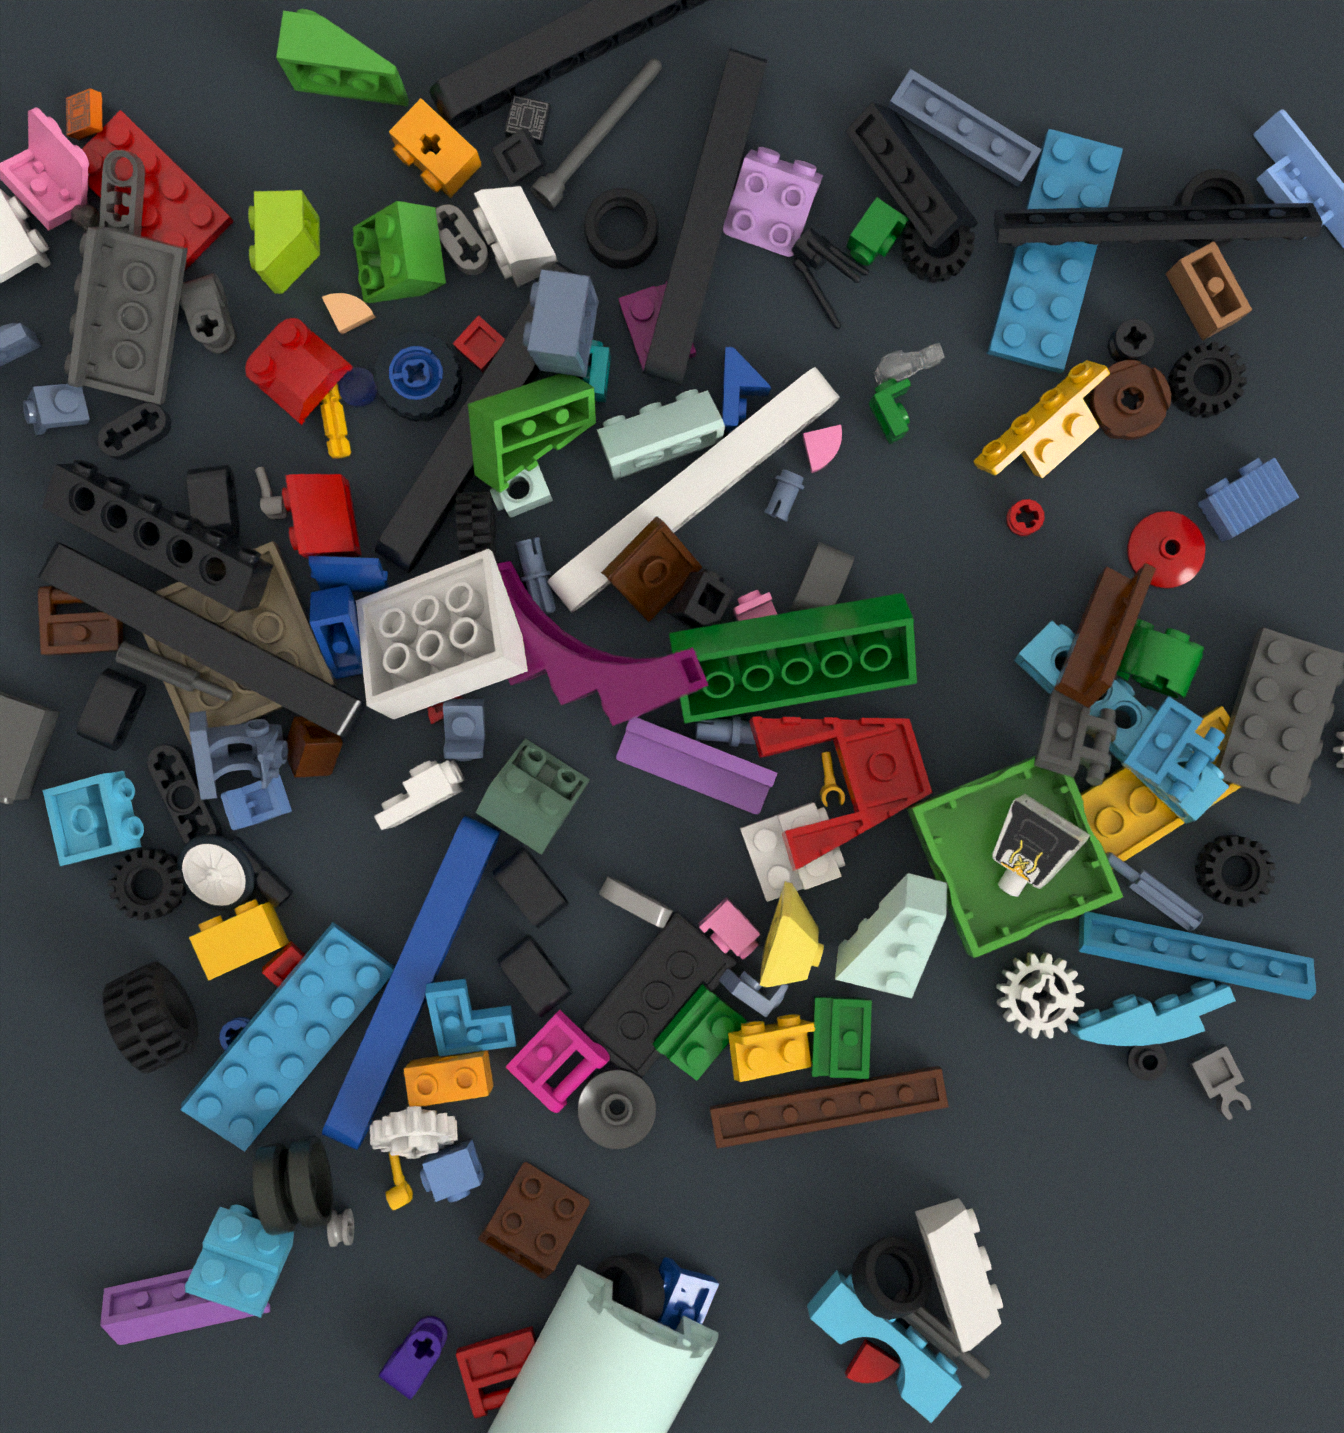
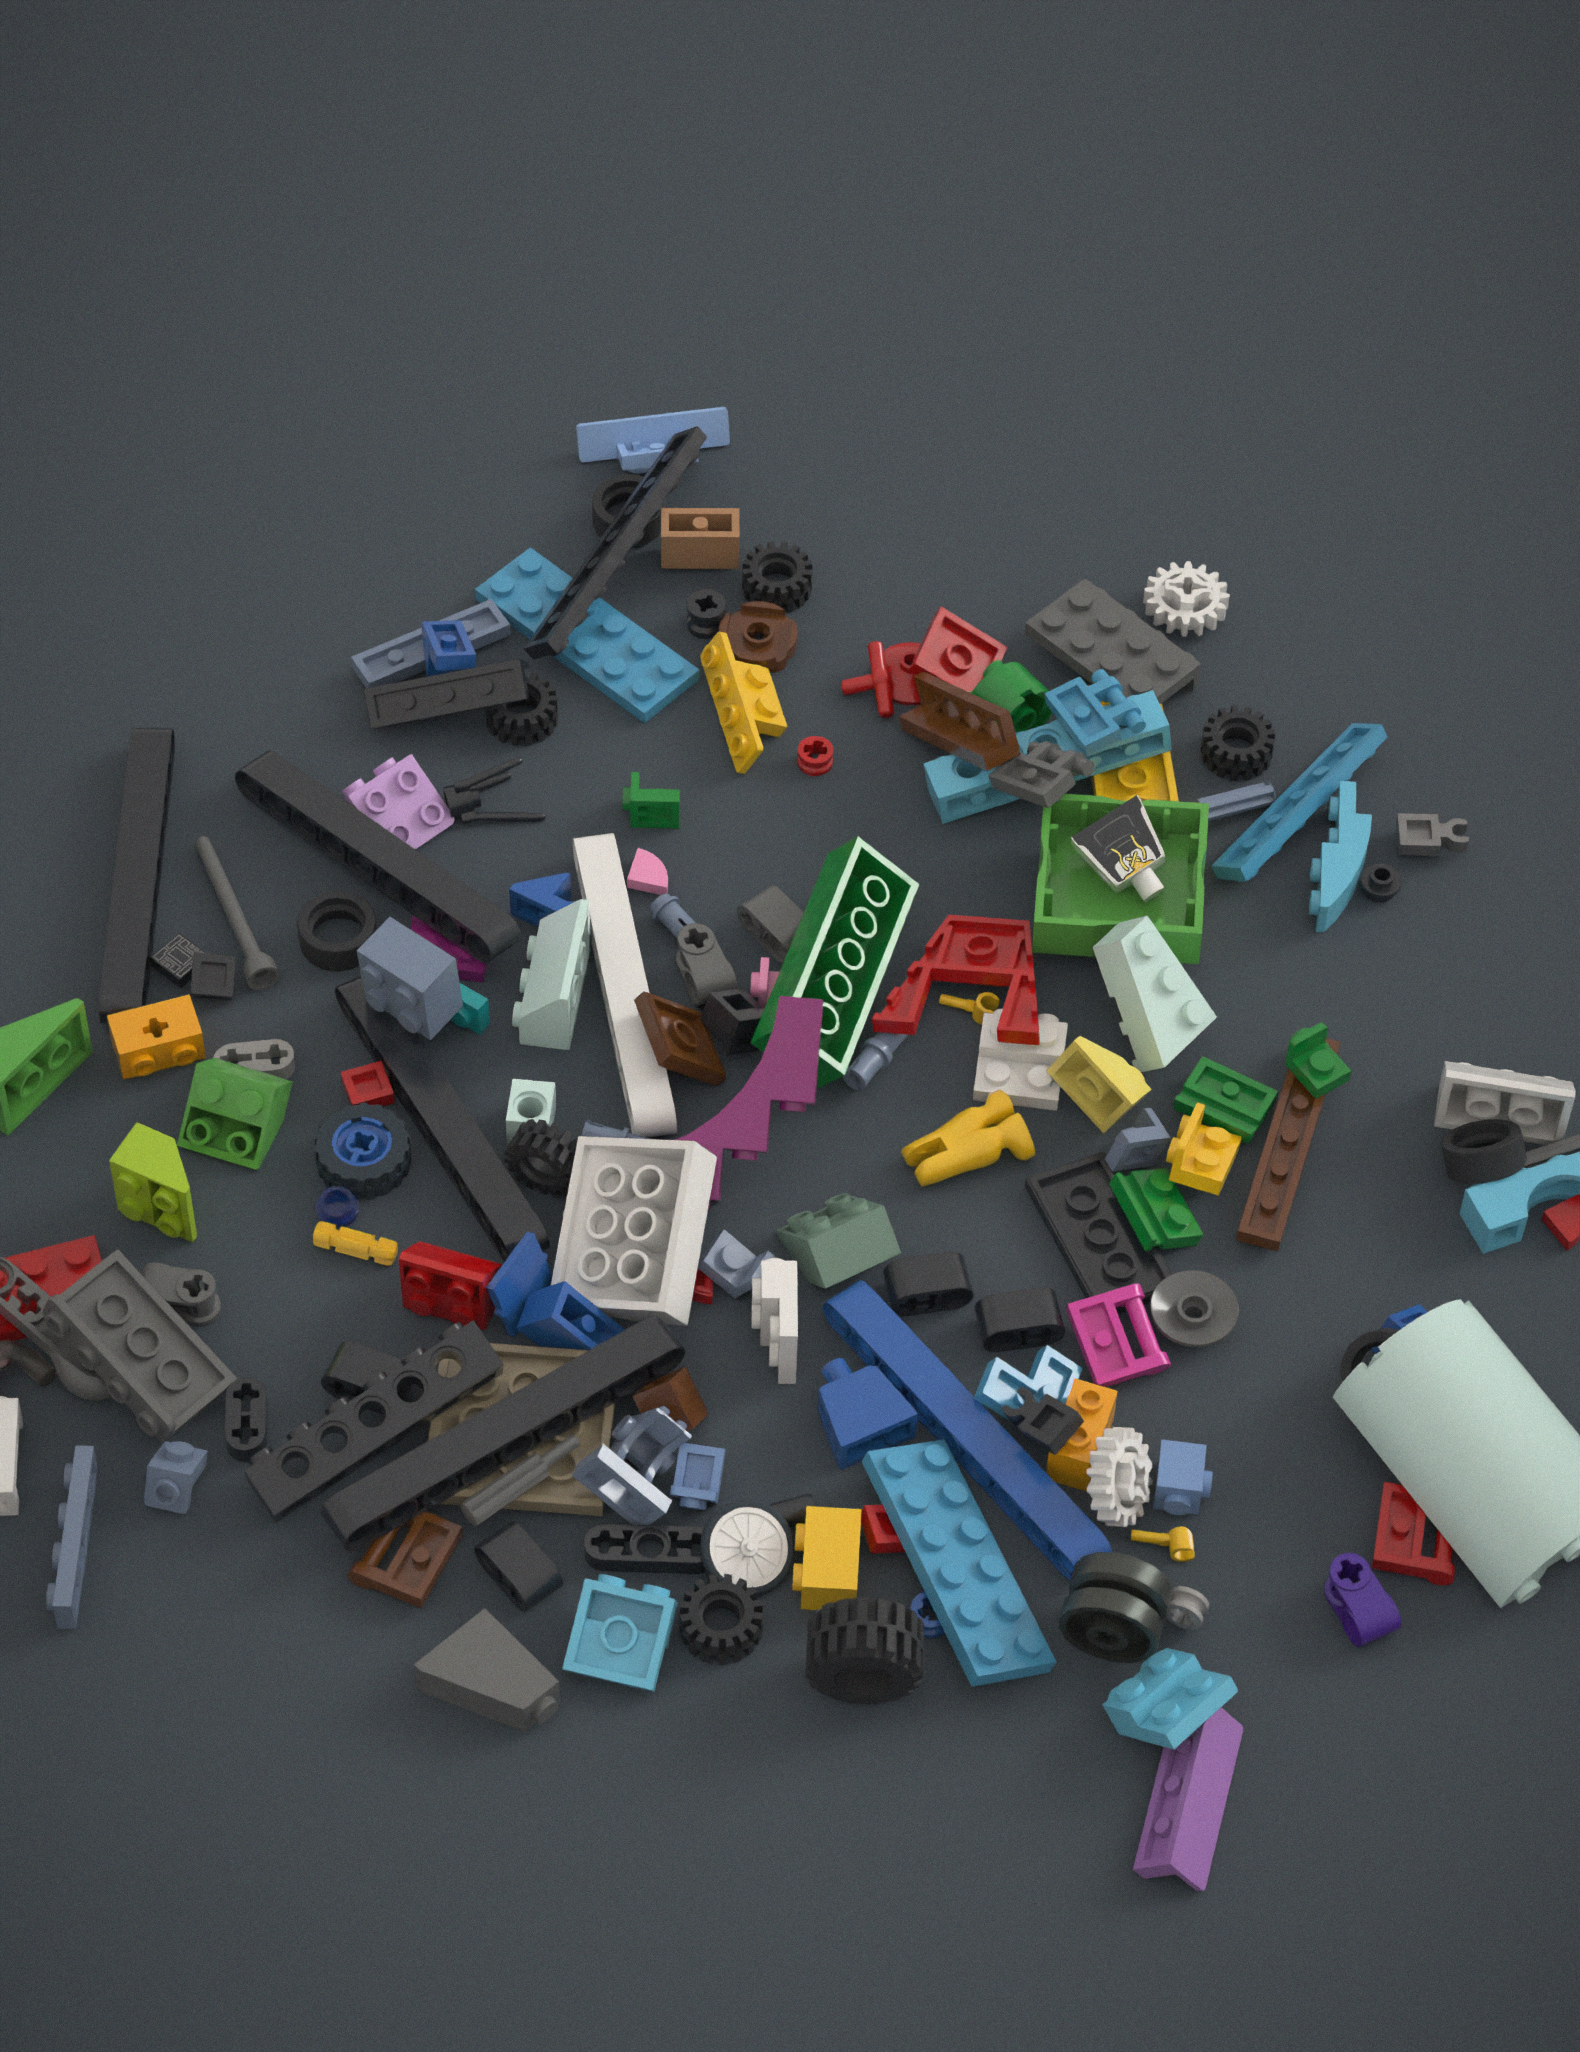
camera: 65 degrees left, 35 degrees down
(271, 506) = (403, 1336): light grey hand -> none
(295, 368) = (286, 1244): red slope -> none
(347, 311) = (255, 1184): light nougat tile -> none
(382, 896) = (862, 1412): none -> blue torso
(420, 1060) = (1044, 1422): none -> black plate
(519, 239) = (287, 1009): white slope -> none
(525, 424) = (477, 1068): bright green wedge -> none
(534, 1221) = (1279, 1436): reddish brown bracket -> none
(635, 902) = (995, 1203): light grey beam -> none
(681, 848) = (968, 1143): none -> yellow piece
(695, 765) = (886, 1098): medium lavender panel -> none
(731, 929) = (1066, 1136): bright pink brick -> none
(740, 552) = (702, 963): none -> dark grey piece
(876, 232) = (477, 742): green brick -> none
(902, 365) = (613, 780): clear plate -> none
(908, 1102) = (1315, 1061): none -> green bracket
(955, 145) = (446, 647): none -> blue slope
(1038, 1011) = (1271, 929): white gear -> none
(1136, 529) = (878, 680): none -> red piece
(1194, 586) = (955, 651): none -> plate
(1247, 500) = (903, 593): medium blue brick -> none

